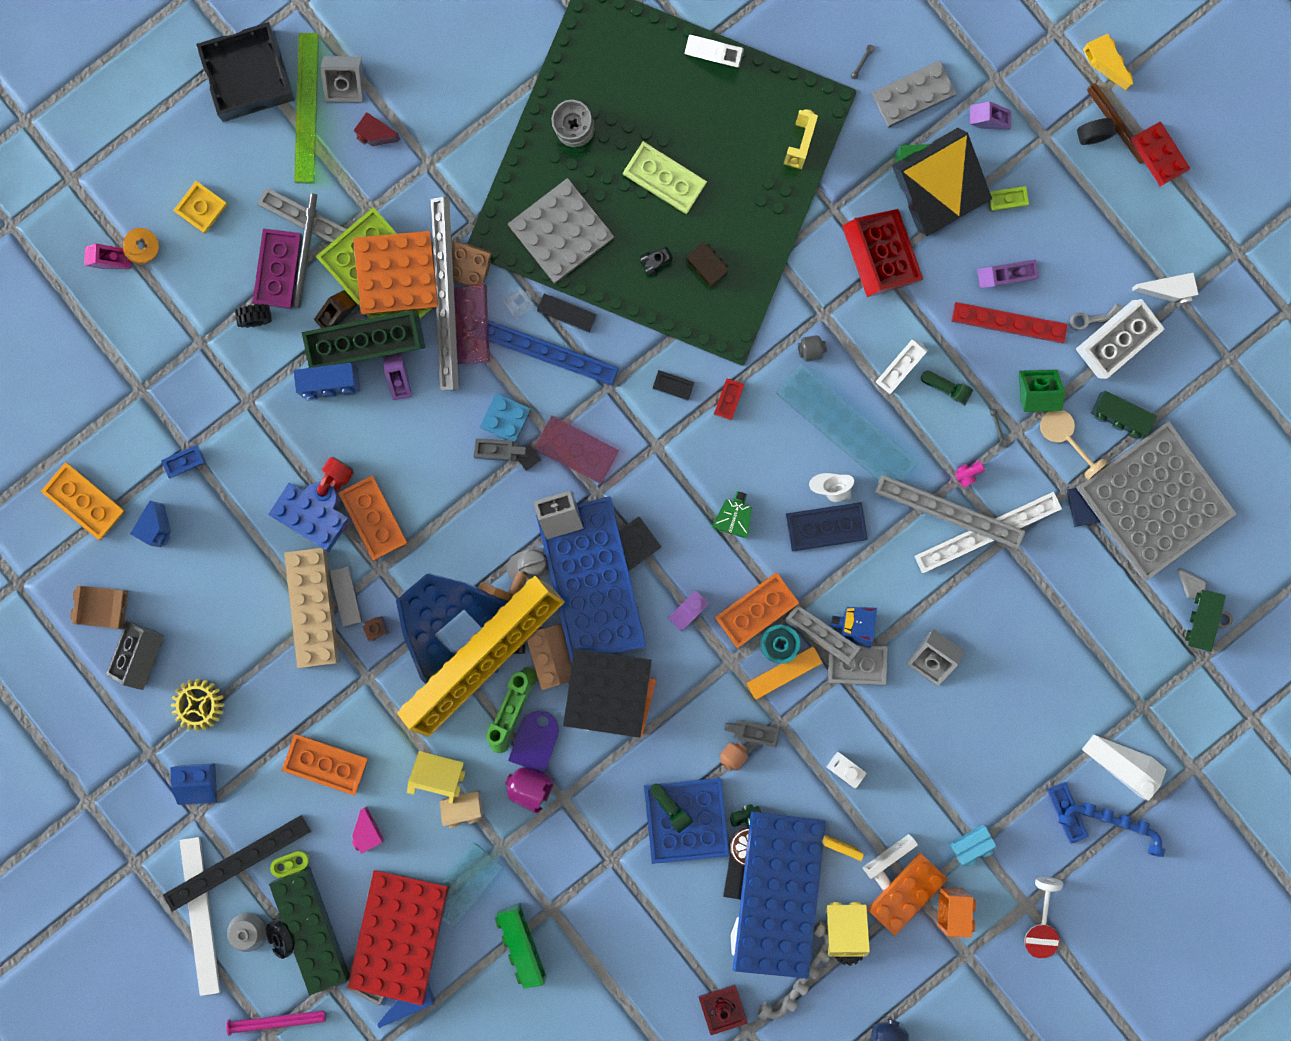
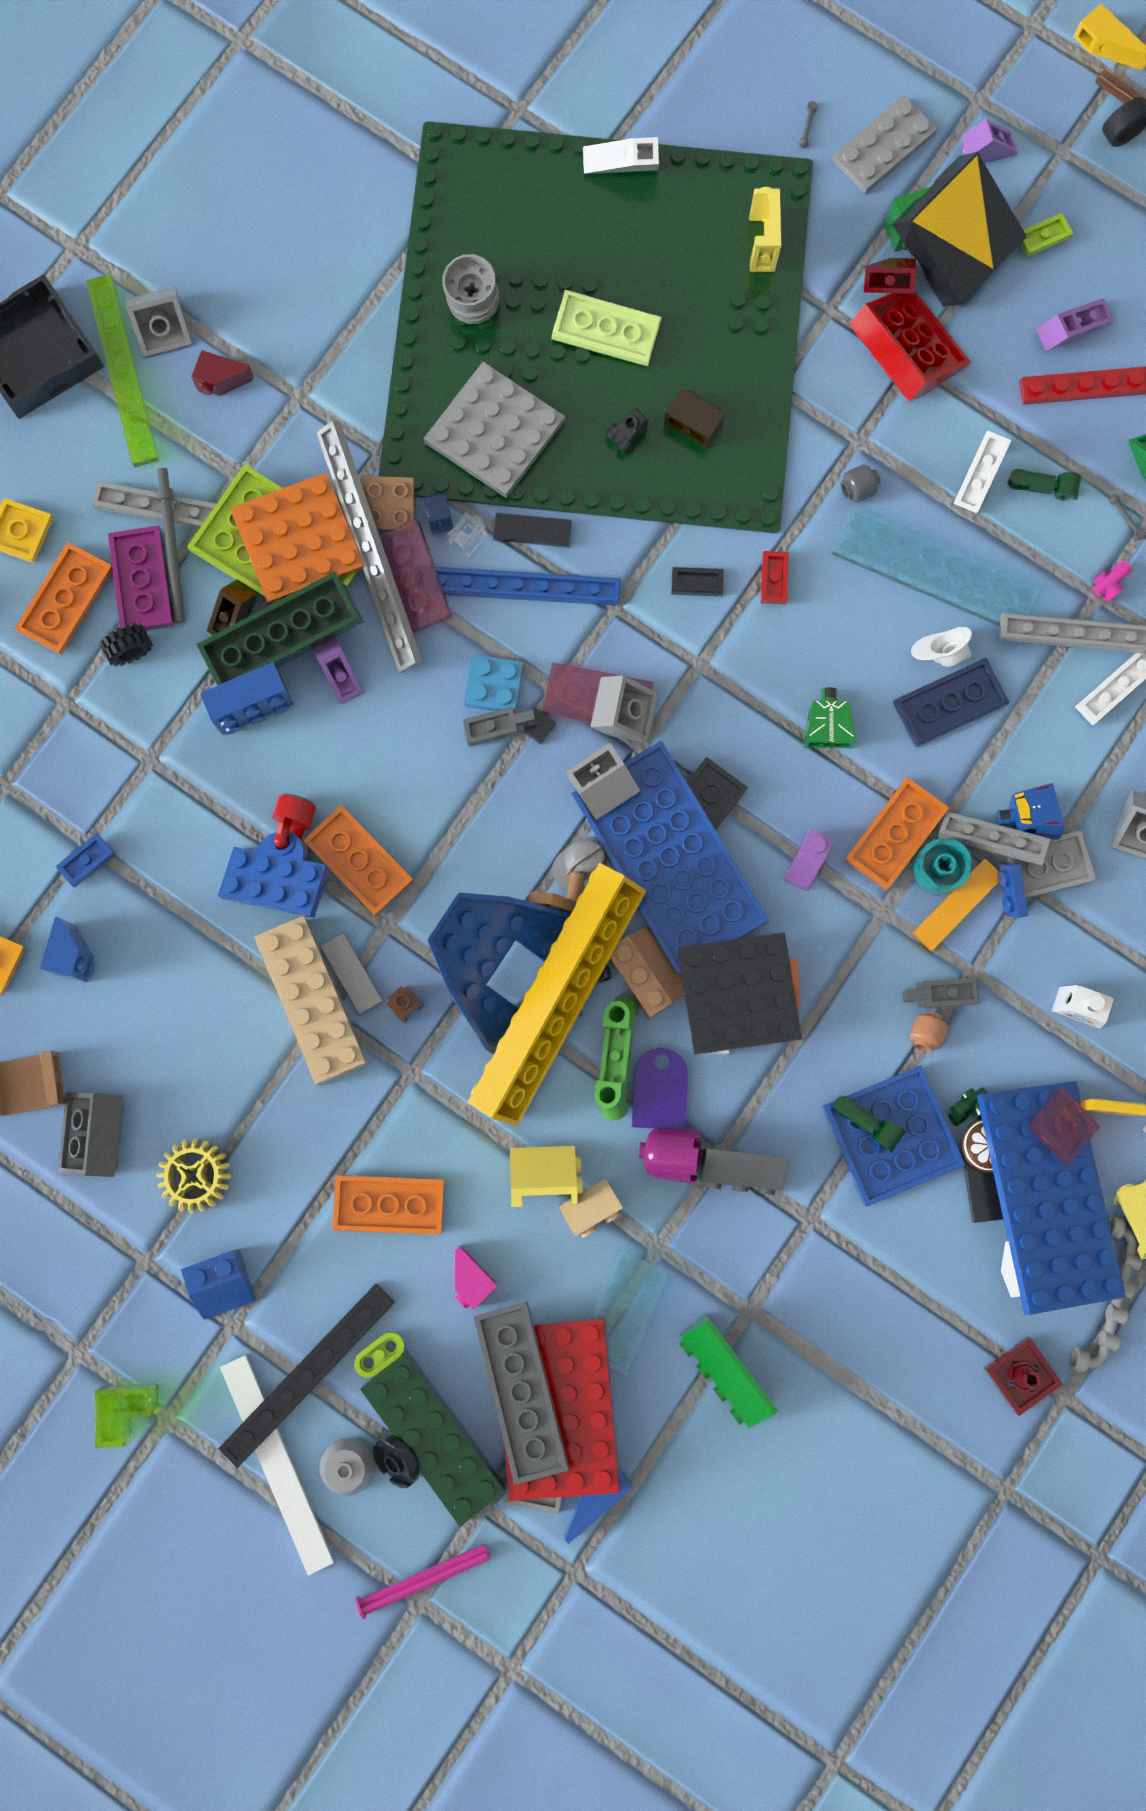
camera: 15 degrees left, 5 degrees down
(101, 847) = (117, 1406): none -> clear neon green brick
(219, 267) = (64, 598): none -> orange plate
(376, 919) = (521, 1393): none -> dark grey plate
(501, 282) = (438, 513): none -> dark blue piece
(574, 813) = (743, 1170): none -> dark grey slope
(590, 465) = (624, 708): none -> light grey slope
(804, 850) = (1063, 1126): none -> clear pink tile
(824, 667) = (1013, 888): none -> blue plate
(883, 199) = (891, 276): none -> dark red slope

